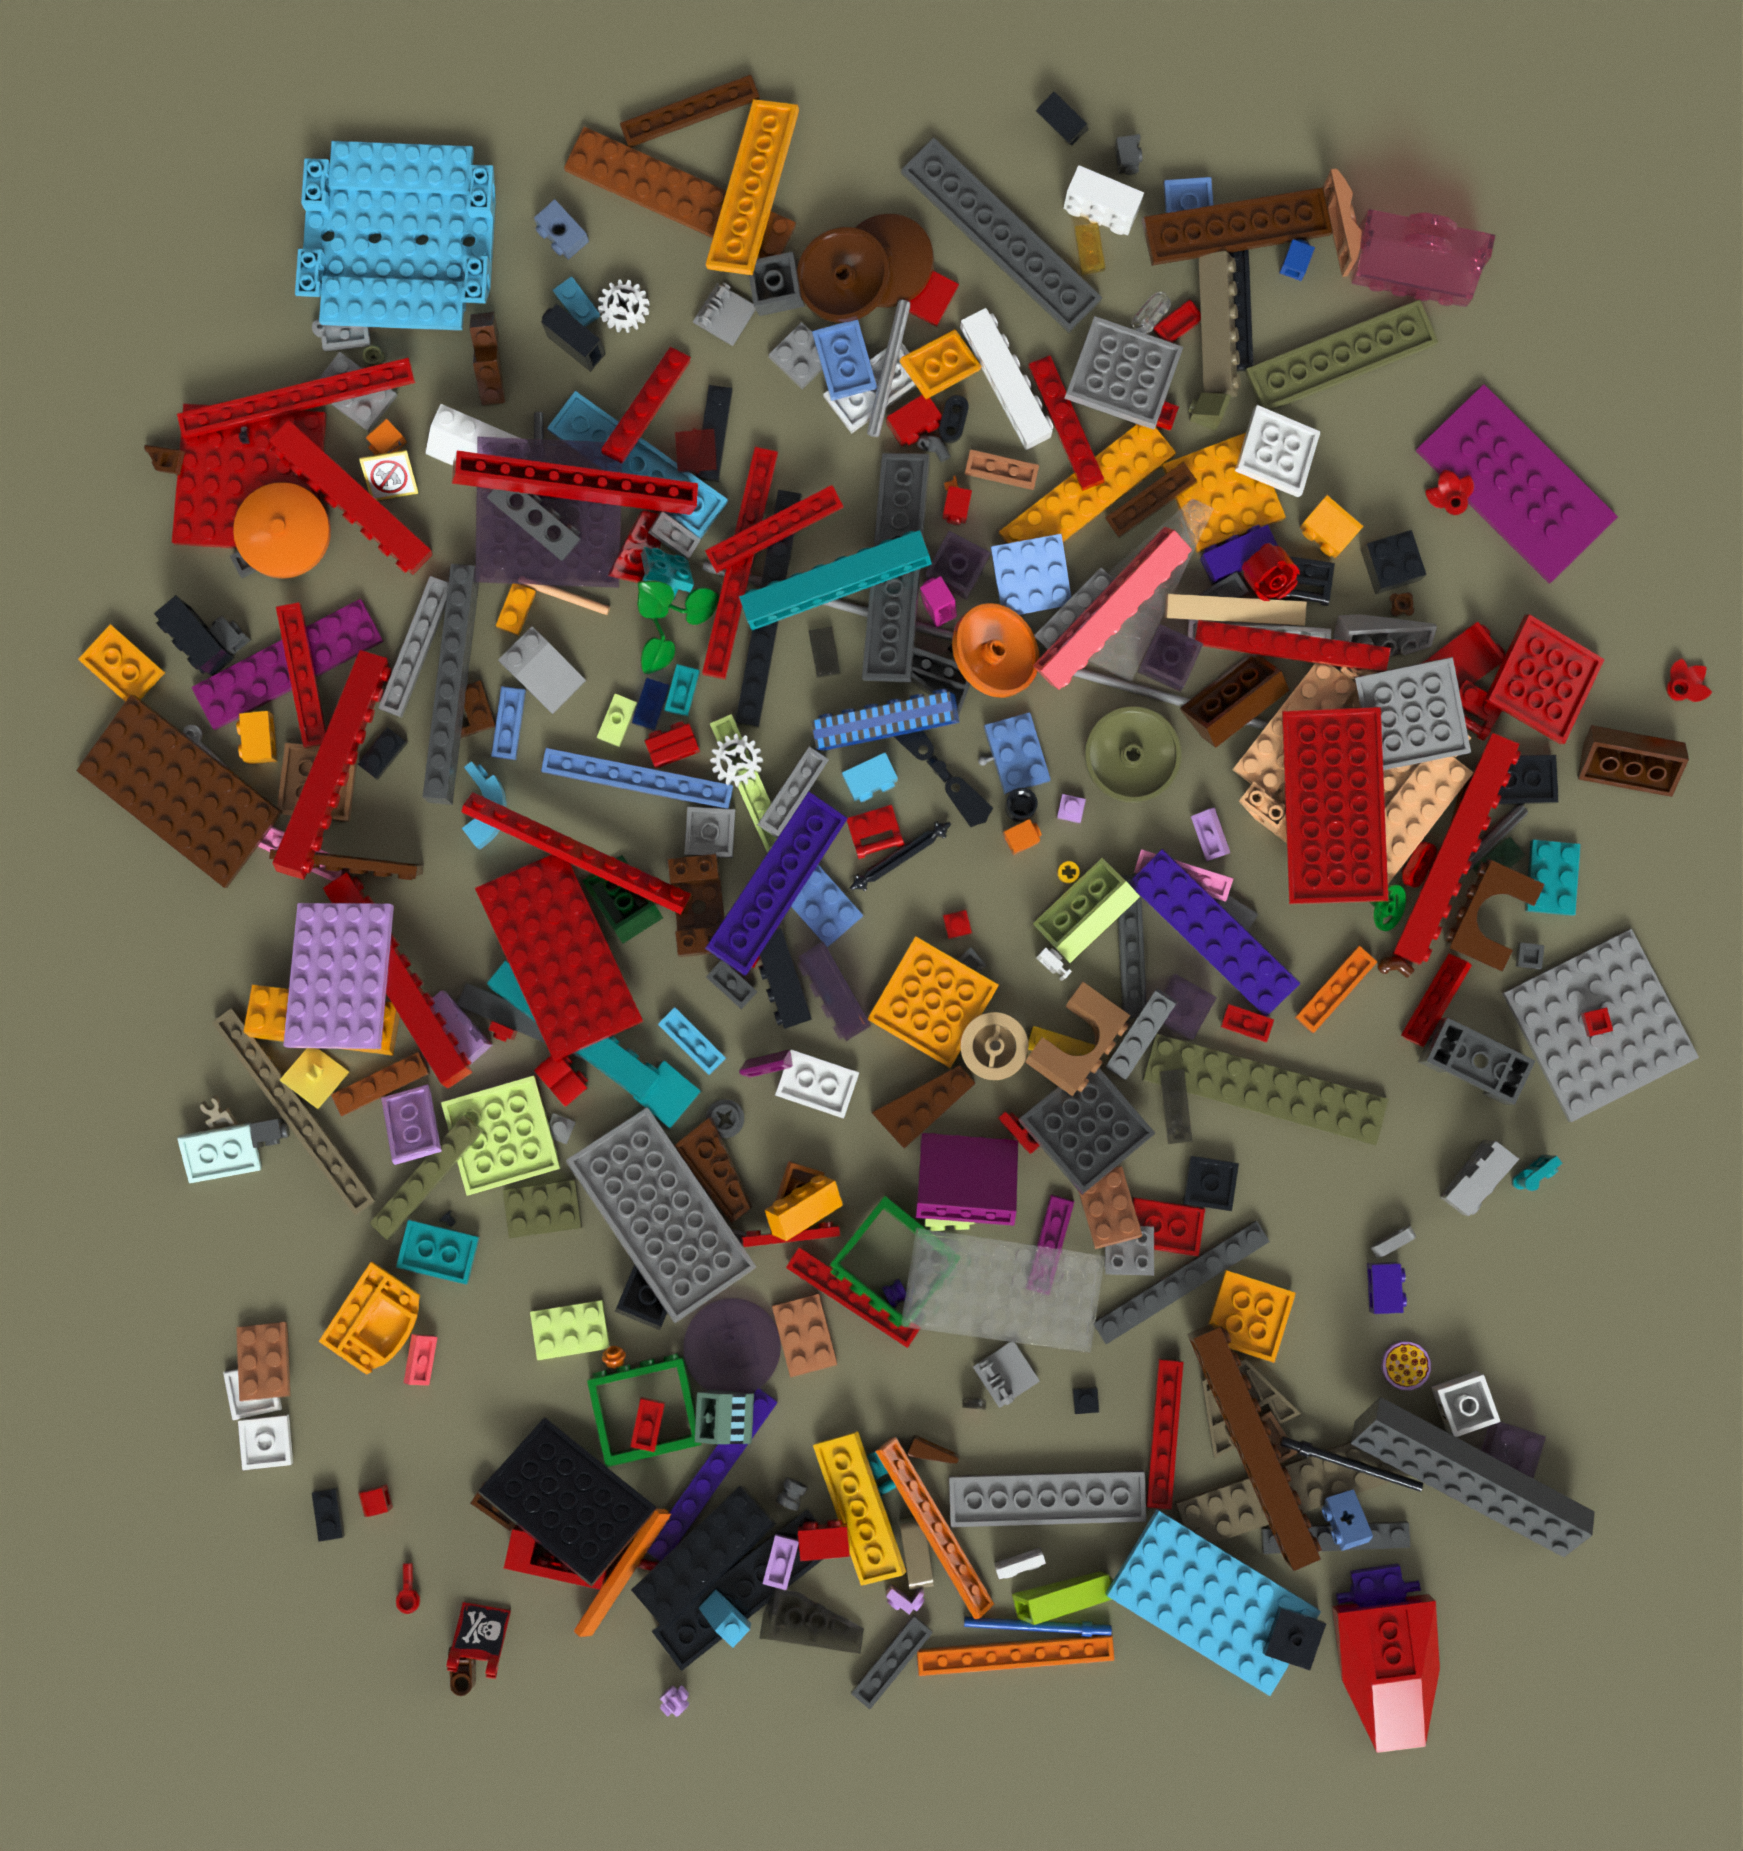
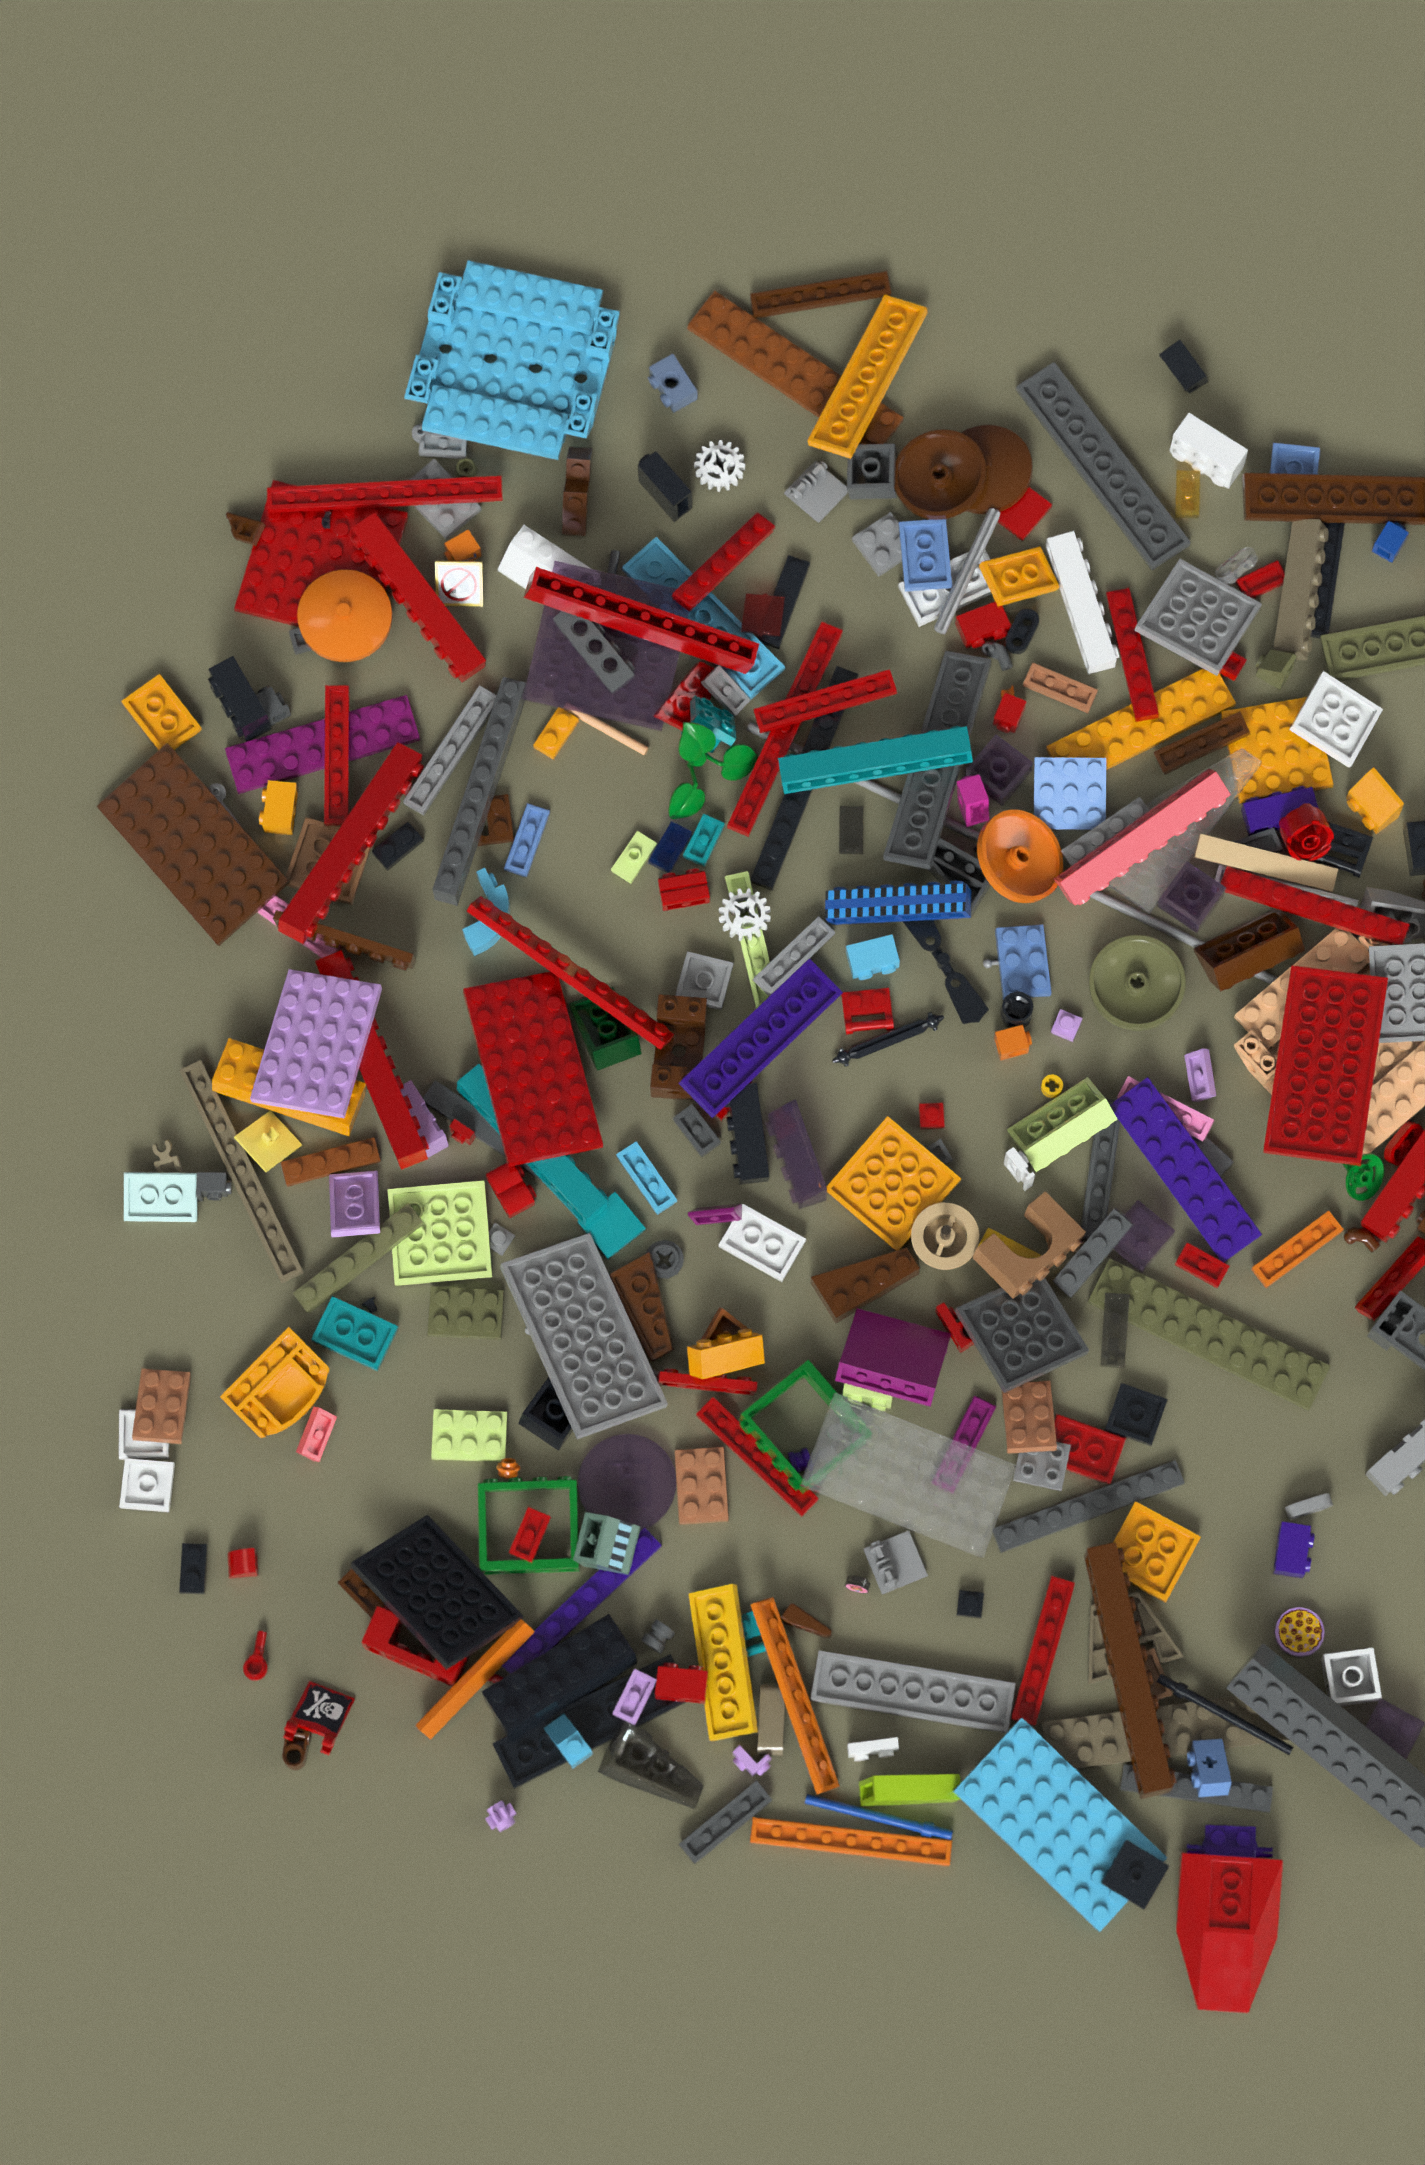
camera: 15 degrees right, 10 degrees down
(542, 670) = (570, 795): light grey slope -> none
(576, 302) = (673, 453): medium azure plate -> none
(637, 778) = (642, 916): medium blue plate -> none
(825, 907) = (803, 1074): medium blue plate -> none
(1128, 154) = (1243, 411): dark grey brick -> none

